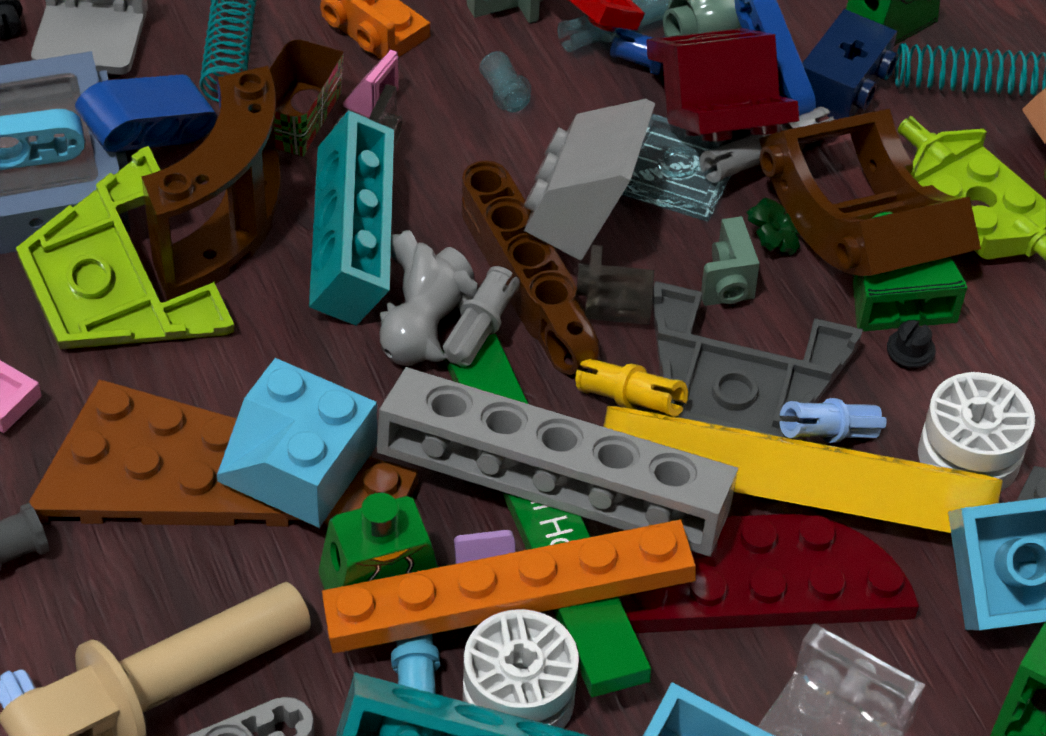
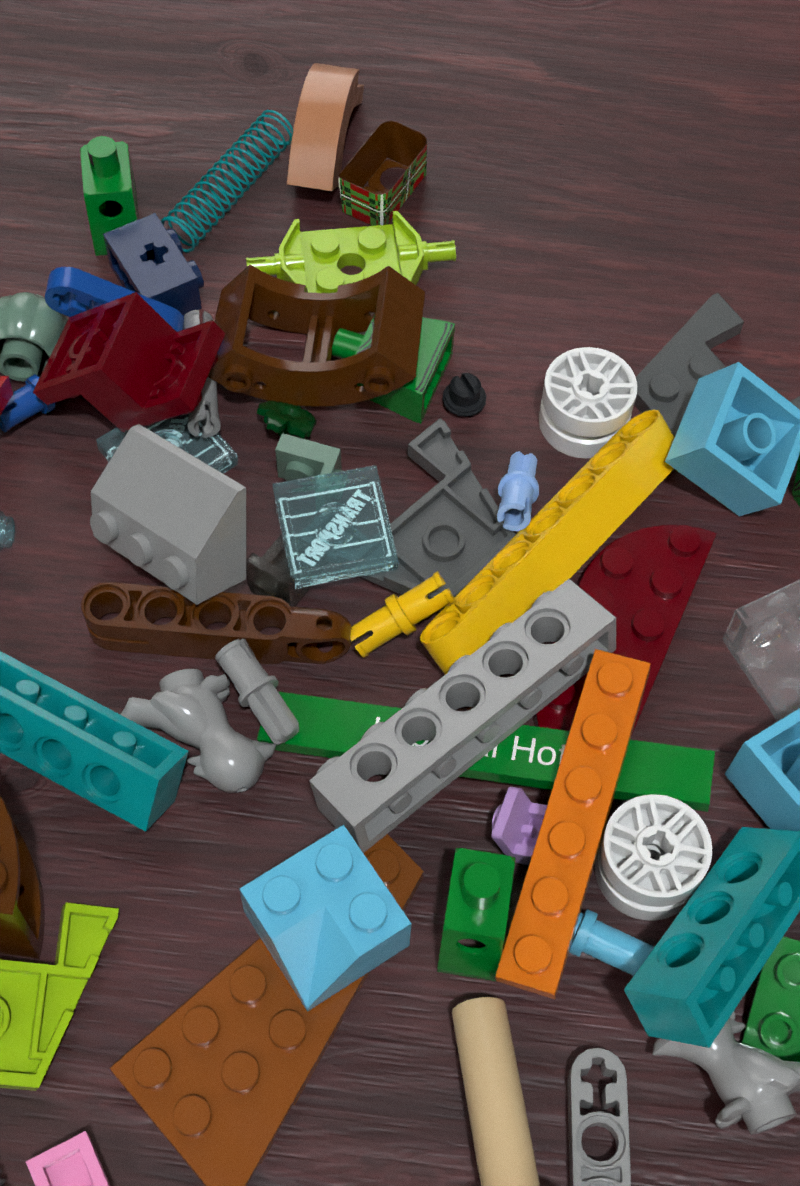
camera: 60 degrees left, 10 degrees up
(677, 294) = (335, 526): none -> clear light blue tile

